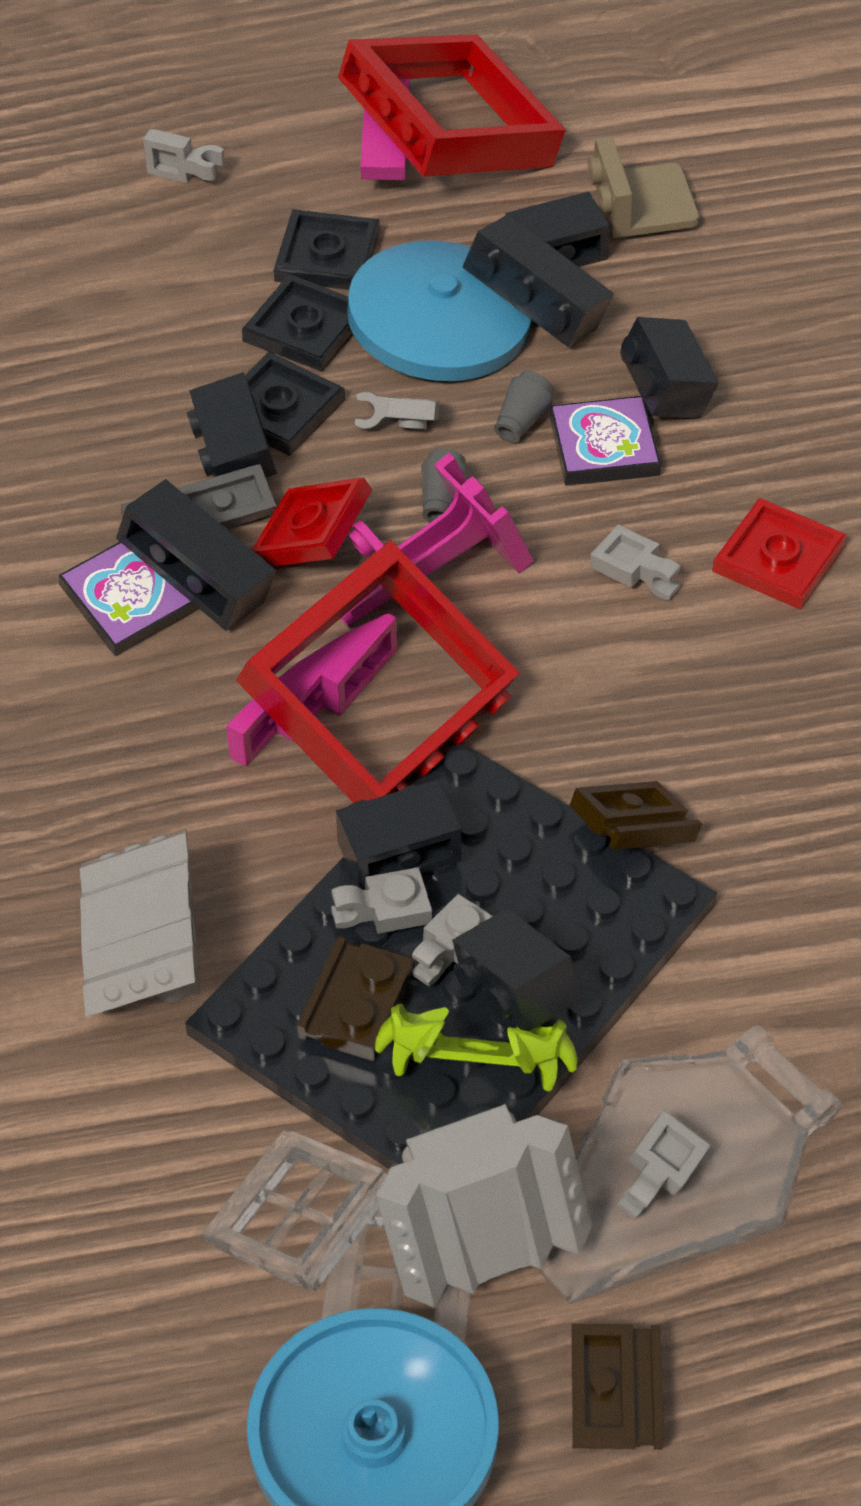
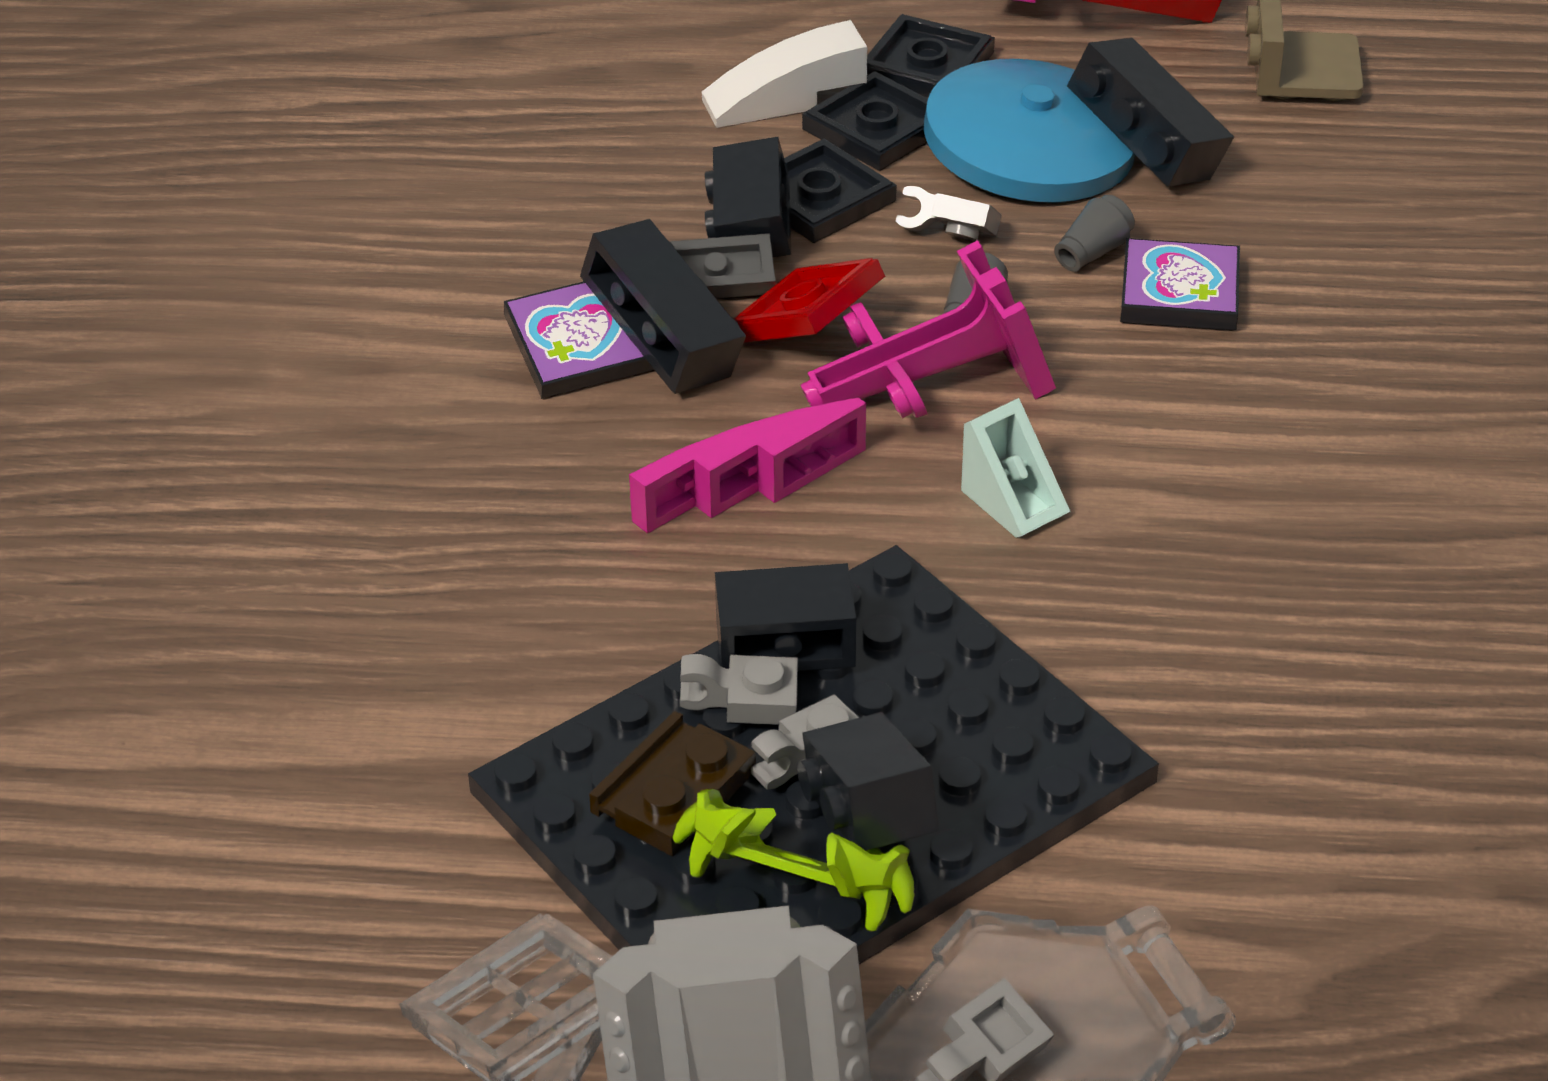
camera: 15 degrees right, 10 degrees down
(139, 925) = (451, 660): light grey slope -> none
(218, 294) = (788, 76): none -> white slope
(435, 615) = (755, 381): red window -> none
(533, 651) = (1009, 471): none -> light aqua slope
(569, 226) = (1209, 70): black brick -> none
(633, 557) = (1172, 399): light grey plate -> none
(635, 814) = (1081, 657): dark brown plate -> none
(668, 367) = (1276, 219): black brick -> none
(779, 553) = (1354, 430): red tile -> none

